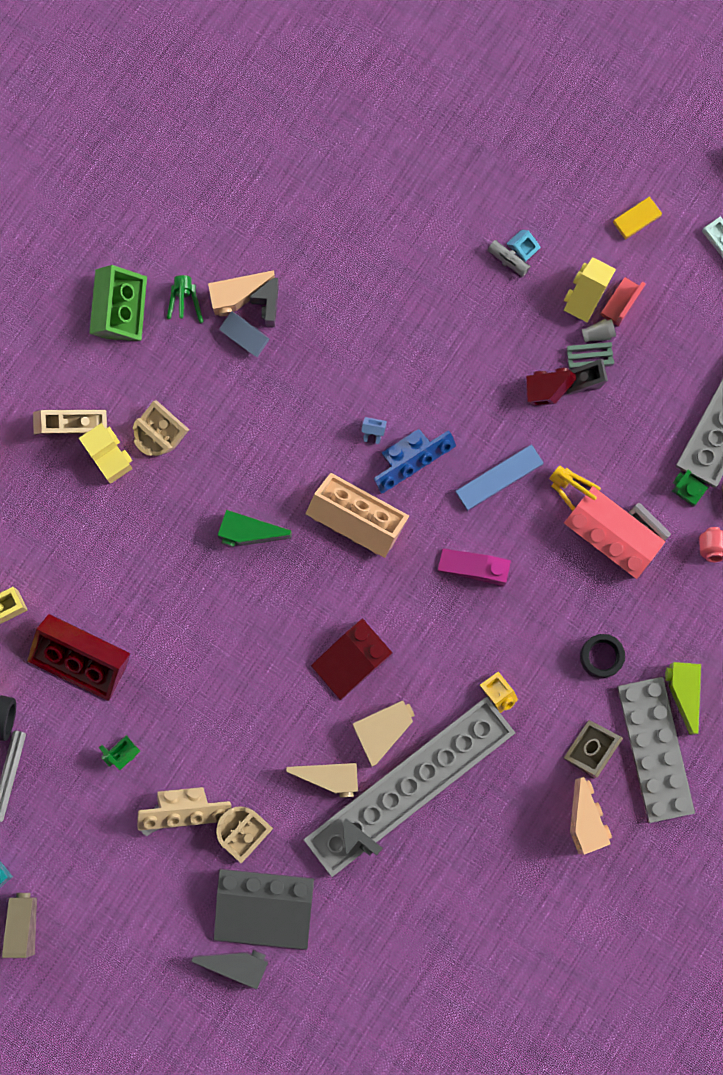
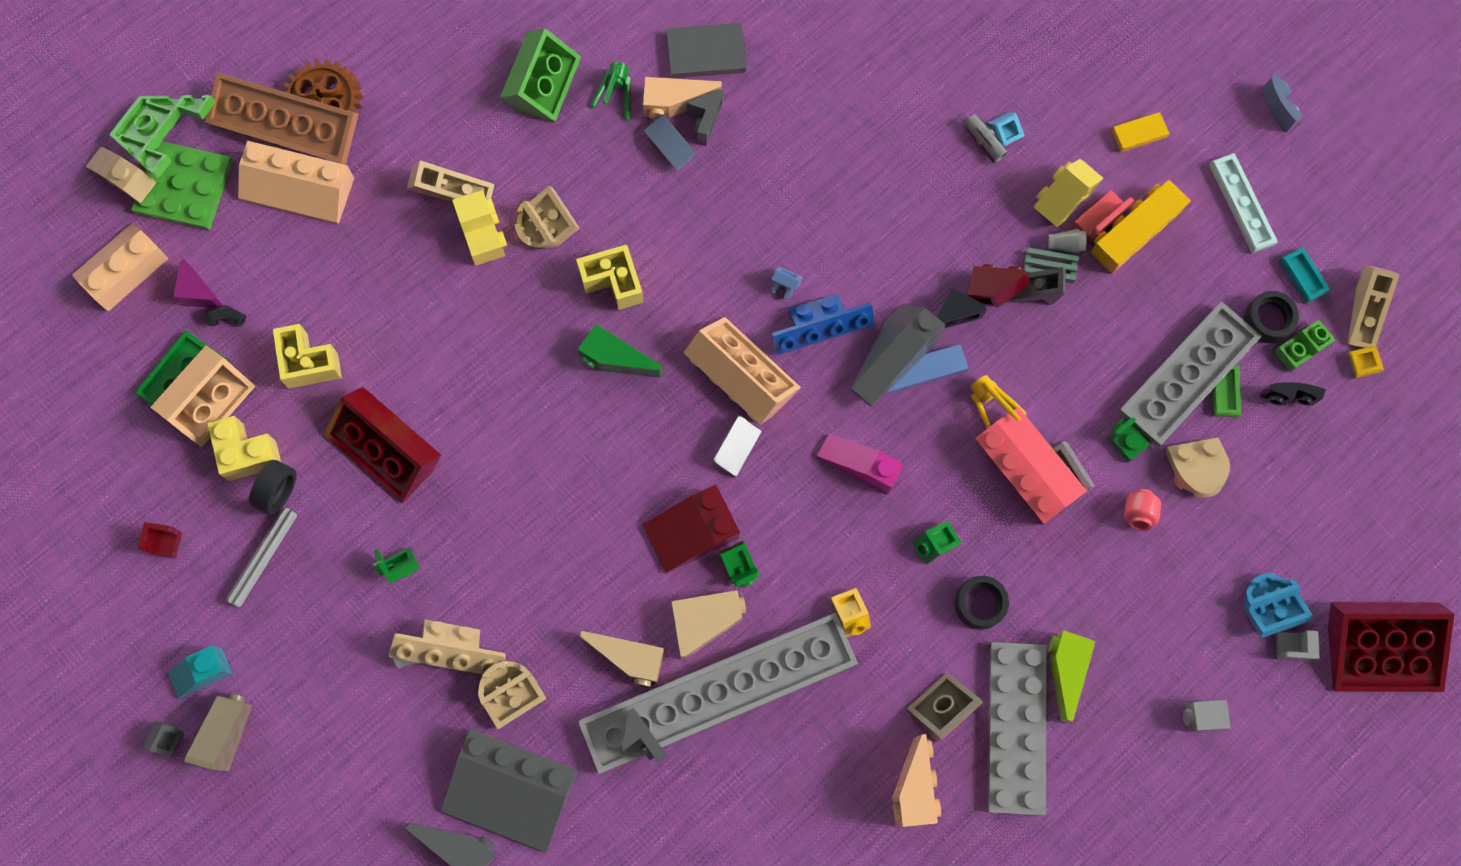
camera: 10 degrees right, 5 degrees down
(228, 458) = (614, 270): none -> light yellow brick
(252, 242) = (706, 50): none -> dark grey tile
(370, 580) = (736, 446): none -> slope
(398, 678) = (739, 565): none -> green bracket
(480, 462) = (898, 347): none -> dark grey wedge
(521, 416) = (960, 309): none -> black slope
(553, 616) = (936, 542): none -> green bracket
(656, 302) = (1139, 226): none -> yellow brick

